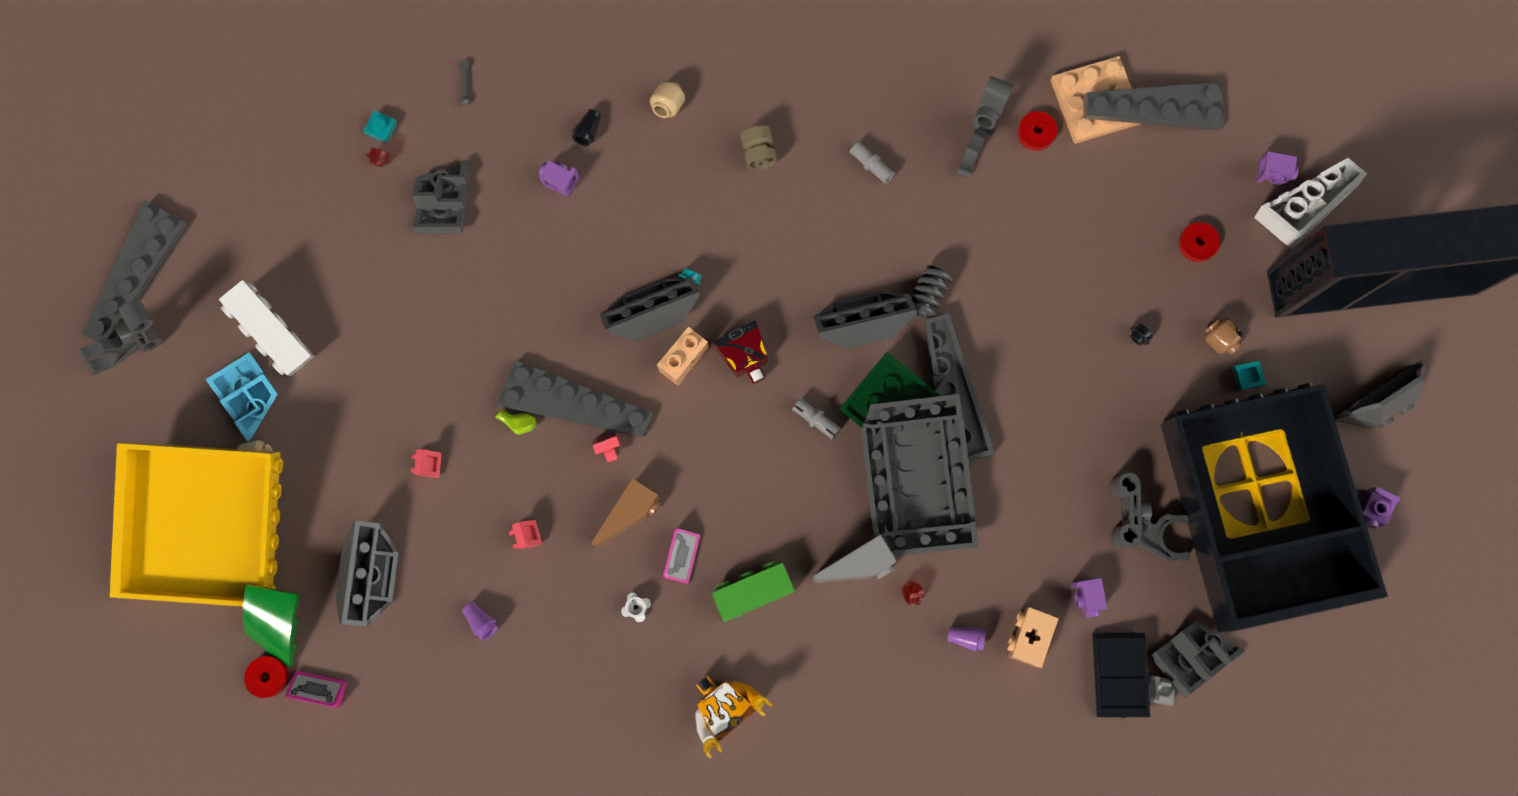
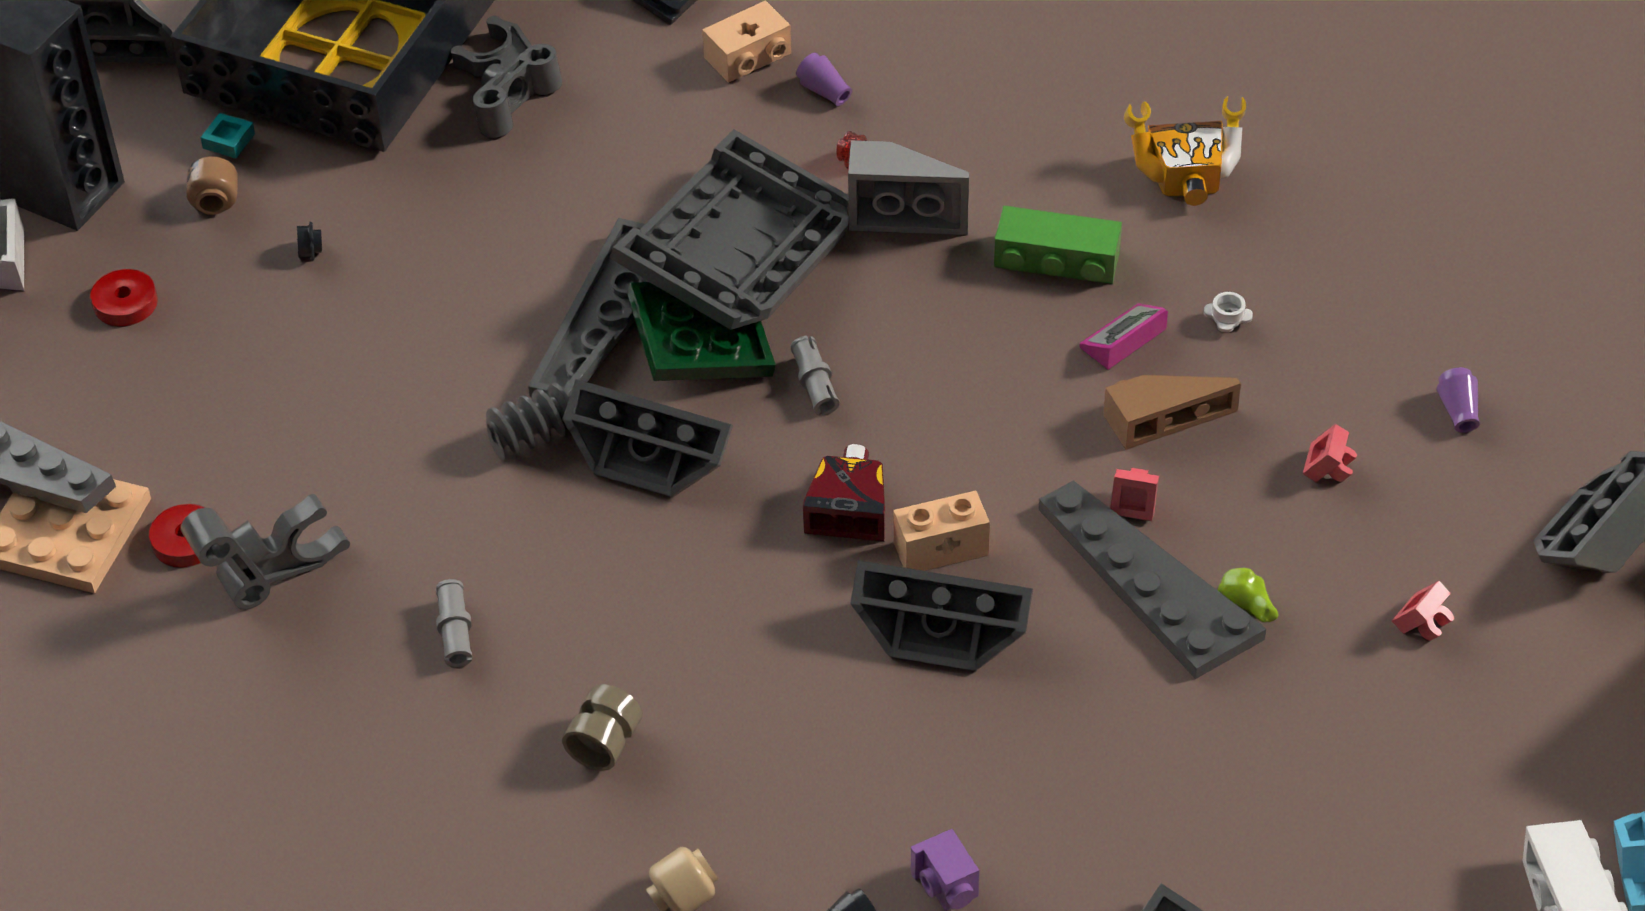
camera: 145 degrees left, 30 degrees down
(688, 273) = (848, 629): teal plate -> none
(1090, 597) = (641, 42): medium lavender brick -> none

